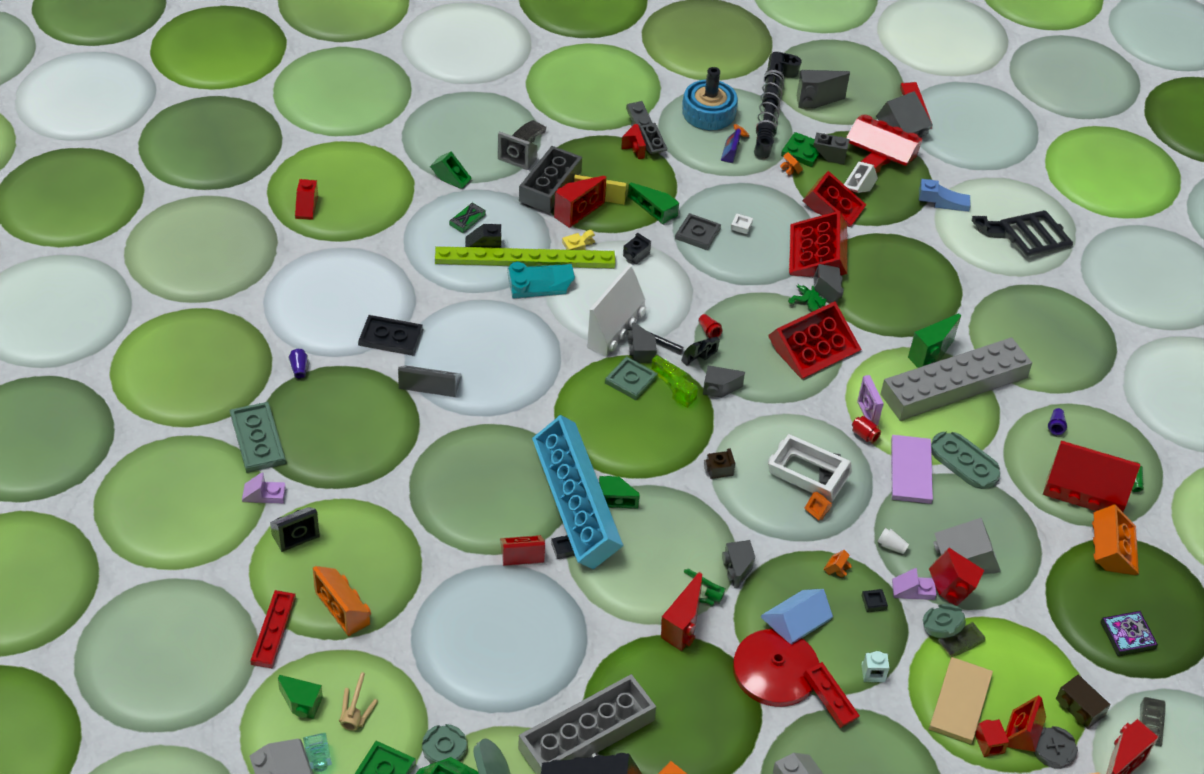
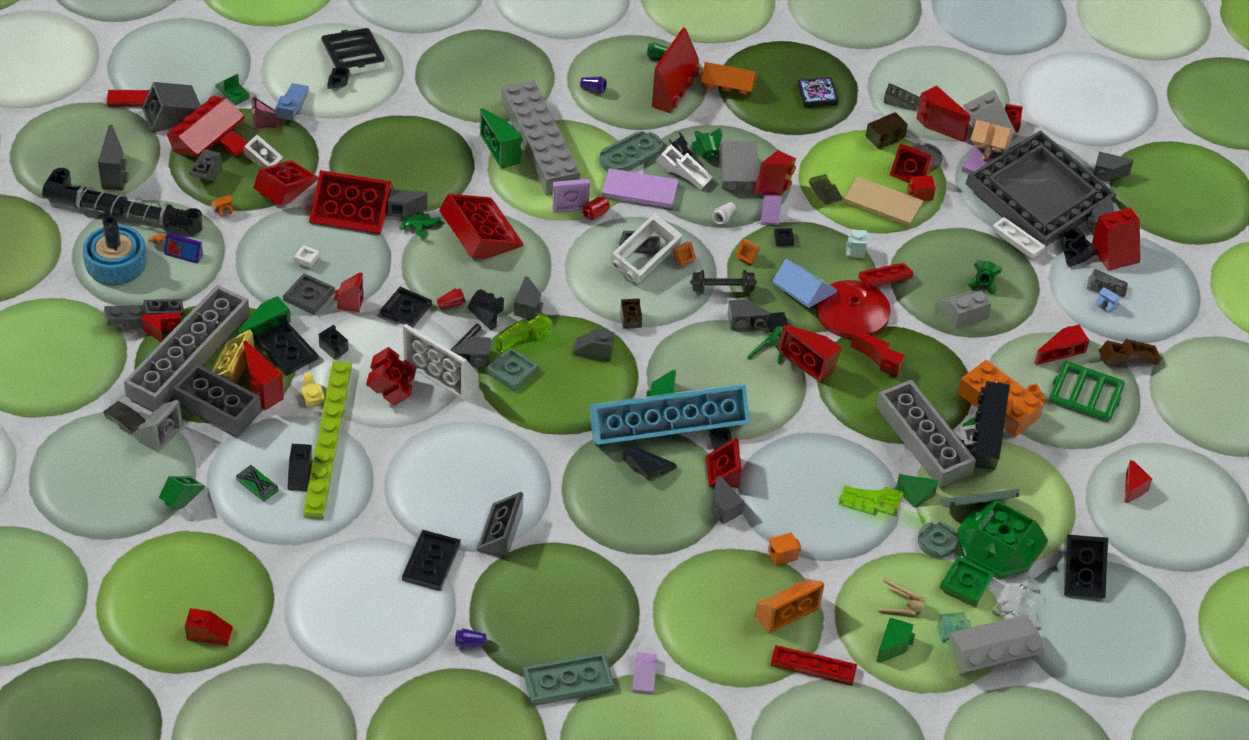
camera: 85 degrees left, 0 degrees up
(295, 528) = (700, 638): black slope -> none
(416, 598) = (784, 548): none -> orange brick
(475, 546) = (726, 502): none -> dark grey slope
(489, 678) = (872, 501): none -> clear neon green slope
(508, 722) = (916, 489): none -> green slope
(521, 484) = (646, 462): none -> black slope
(539, 280) = (365, 426): teal slope -> none
(591, 281) = (391, 376): none -> red brick
(610, 155) = (186, 346): none -> light grey brick
(627, 222) = (286, 348): none -> black tile
(670, 440) = (595, 344): none -> dark grey slope
(695, 255) = (350, 294): none -> red slope
(696, 297) = (406, 307): none -> black tile
(706, 690) = (878, 350): none -> red slope
(740, 594) = (776, 320): none -> black tile
(786, 559) = (747, 281): none -> pearl dark grey piece
(801, 149) = (195, 194): green plate -> none
(915, 172) = (263, 115): none -> clear pink slope
(944, 621) = (810, 194): sand green tile -> none
(947, 159) = (233, 90): none -> green slope
(950, 502) = (684, 166): none -> white slope
(984, 499) = (681, 145): none -> black piece
(994, 520) = (707, 143): none -> green brick

